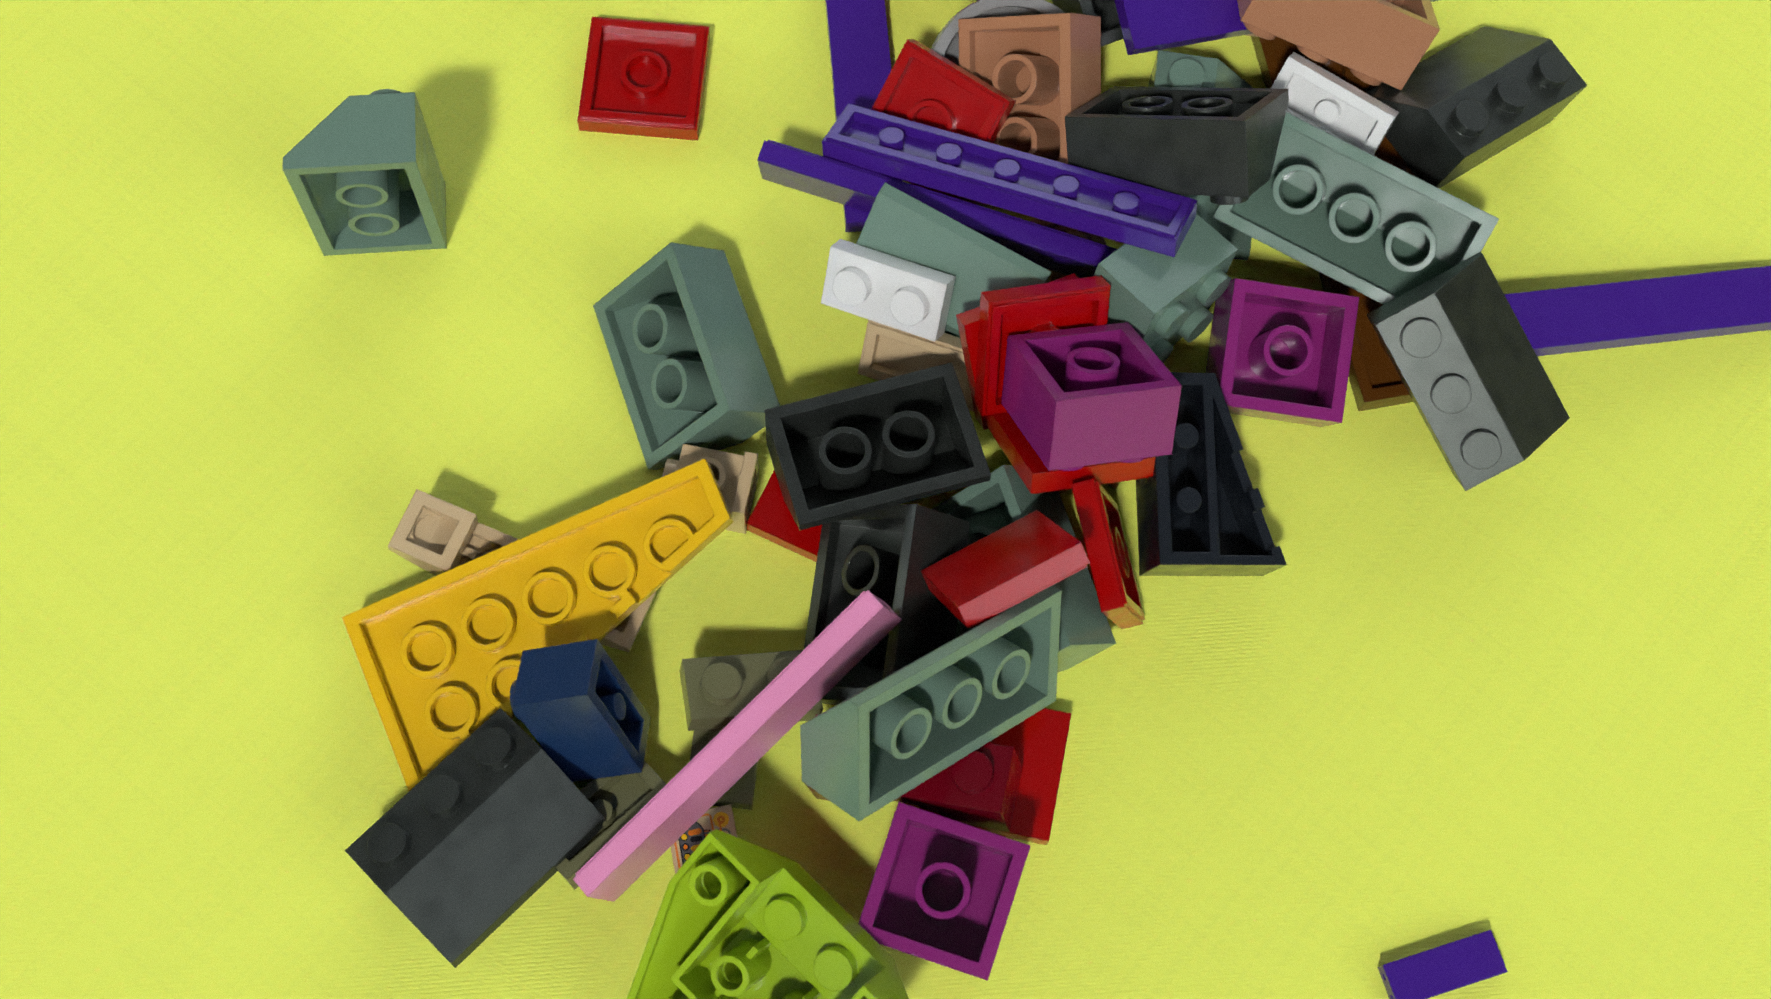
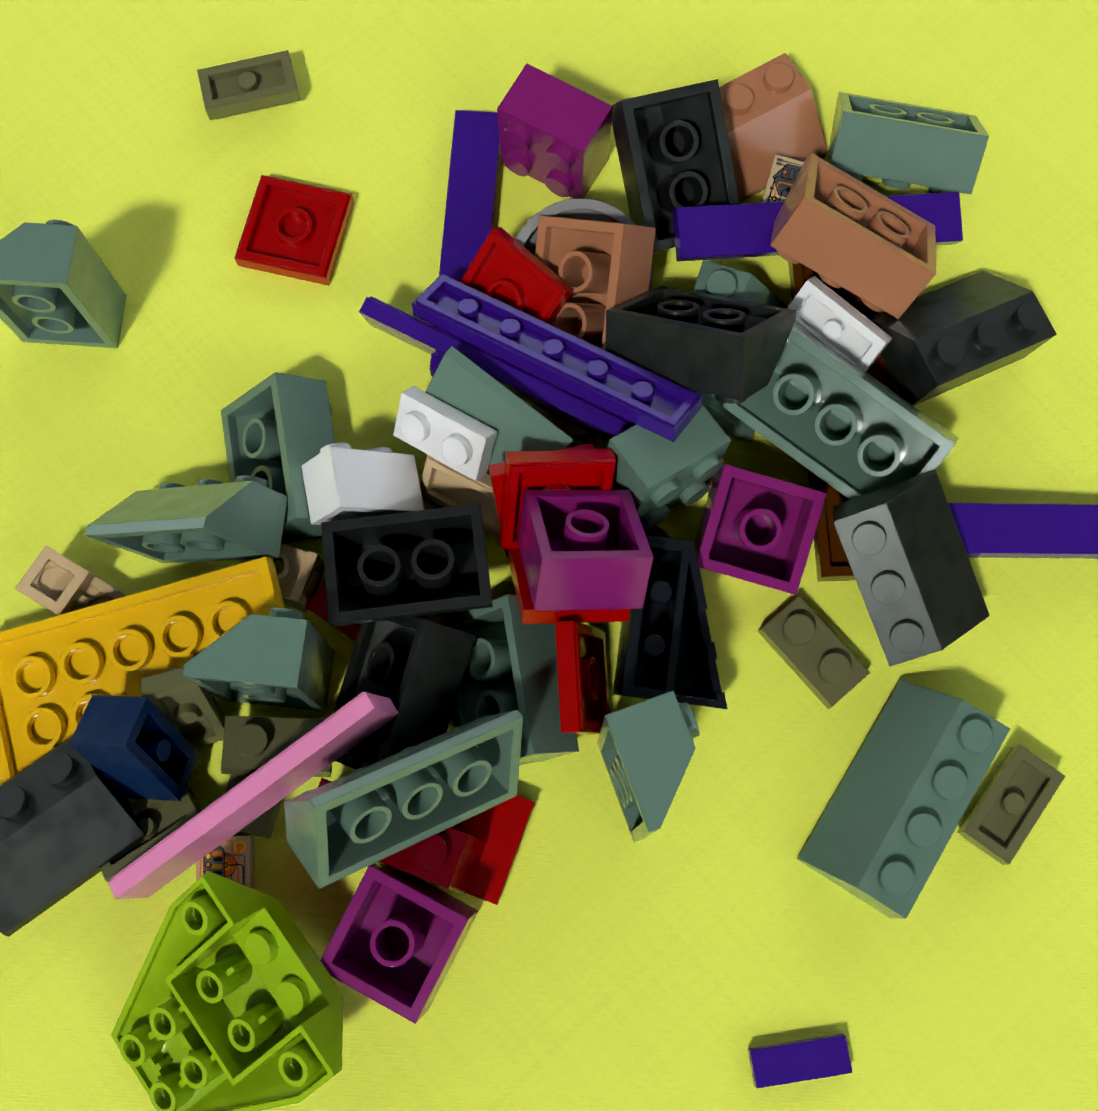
camera: 15 degrees right, 5 degrees up
(606, 434) = (197, 521): none -> sand green slope
(636, 650) = (186, 706): none -> olive plate
(727, 587) = (267, 662): none -> sand green slope
(792, 361) = (360, 483): none -> white brick
(1005, 568) = (481, 689): red tile -> none
(1209, 627) = (647, 757): none -> sand green slope
(1369, 494) = (813, 652): none -> olive plate
(1507, 644) = (903, 797): none -> sand green slope
(1633, 635) = (1011, 804): none -> olive plate

